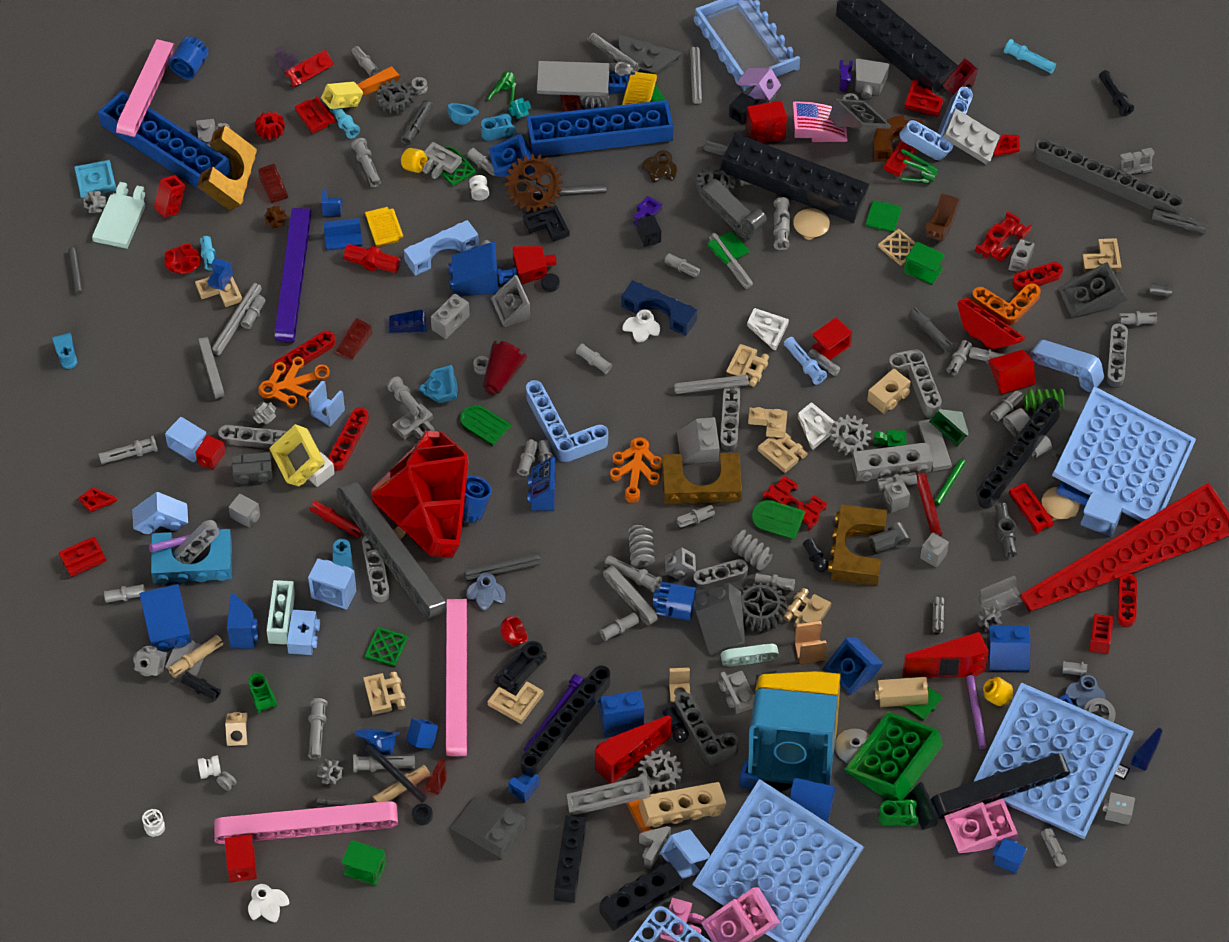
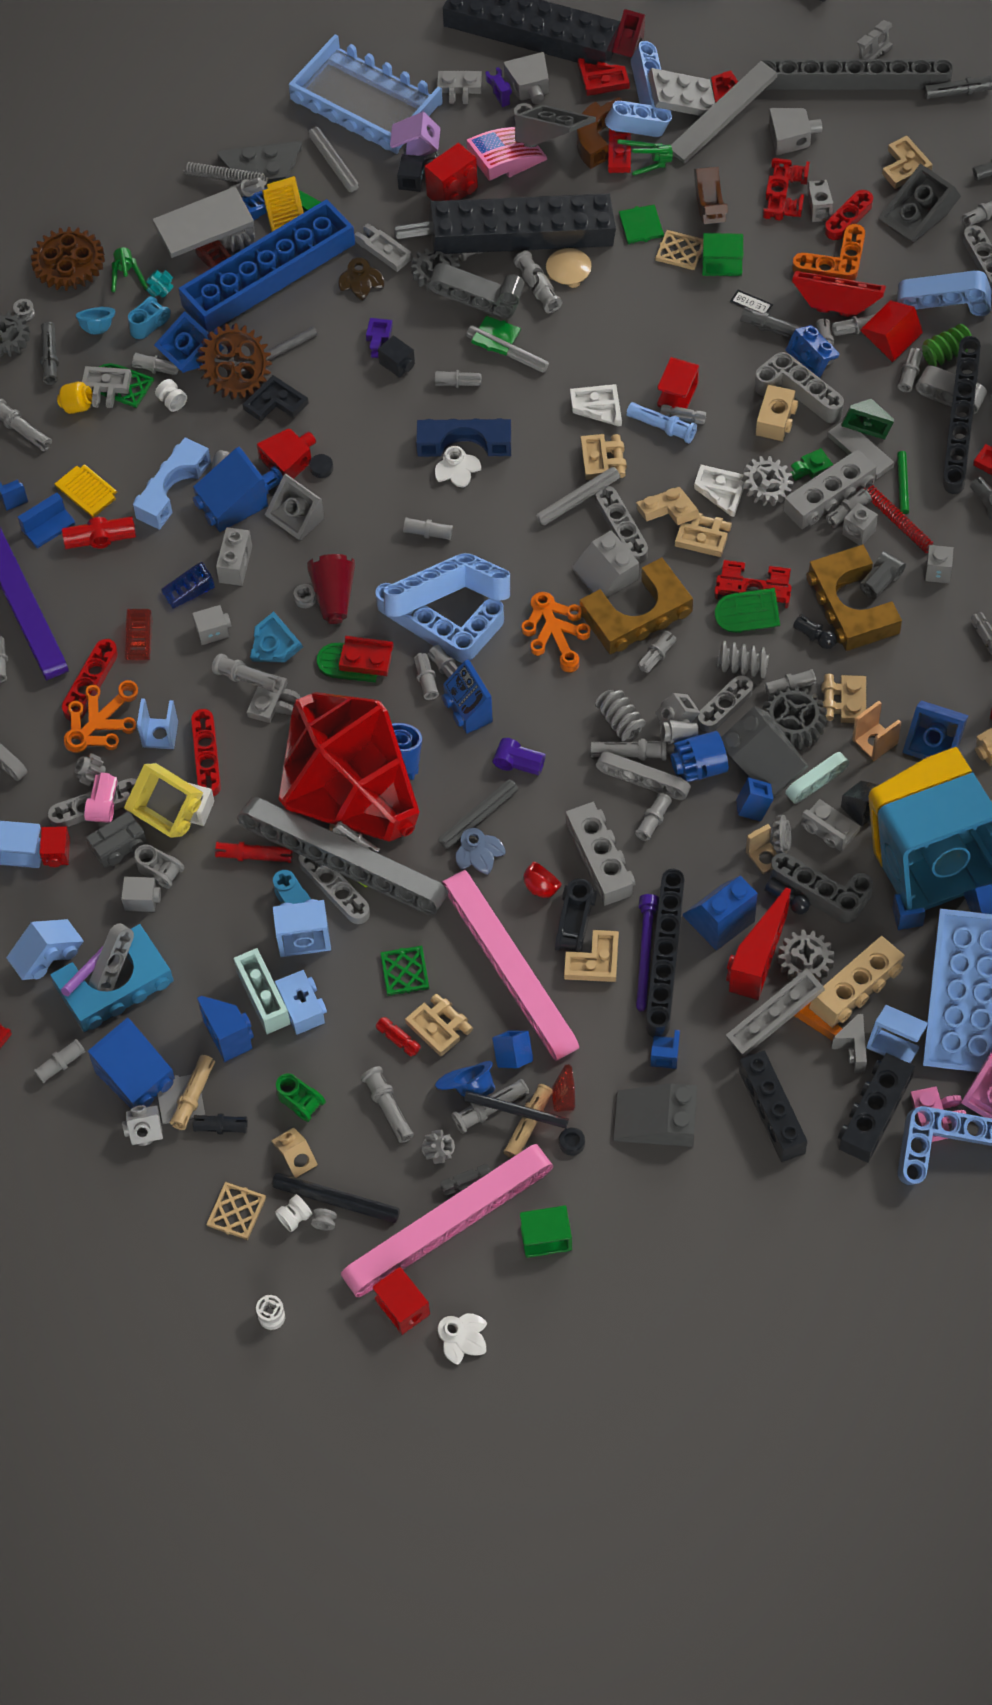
camera: 25 degrees left, 5 degrees up
(183, 757) = (228, 1229): none -> tan window
(244, 772) = (336, 1197): none -> black axle
(255, 439) = (101, 805): none -> bright pink piece
(269, 499) = (161, 867): none -> light grey piece
(352, 687) = (398, 1036): none -> red axle
(403, 536) = (349, 834): none -> light grey axle
(406, 355) = (211, 624): none -> light grey brick
(470, 63) = (67, 258): none -> reddish brown gear
(495, 424) = (366, 656): none -> red plate
(550, 539) = (512, 755): none -> dark purple piece
(565, 660) = (609, 887): none -> light grey brick
(575, 396) = (444, 579): none -> light blue beam
(670, 575) = (675, 731): none -> light grey cone
(690, 152) = (384, 247): none -> light grey hinge
(695, 648) = (754, 799): none -> blue panel
(697, 681) = (781, 834): none -> light grey gear
(820, 60) = (460, 83): none -> light grey hinge
(926, 306) = (746, 300): none -> white sticker
(943, 359) = (811, 349): none -> blue bracket
(991, 162) = (723, 111): none -> light grey tile
(1035, 197) = (791, 129): none -> light grey torso

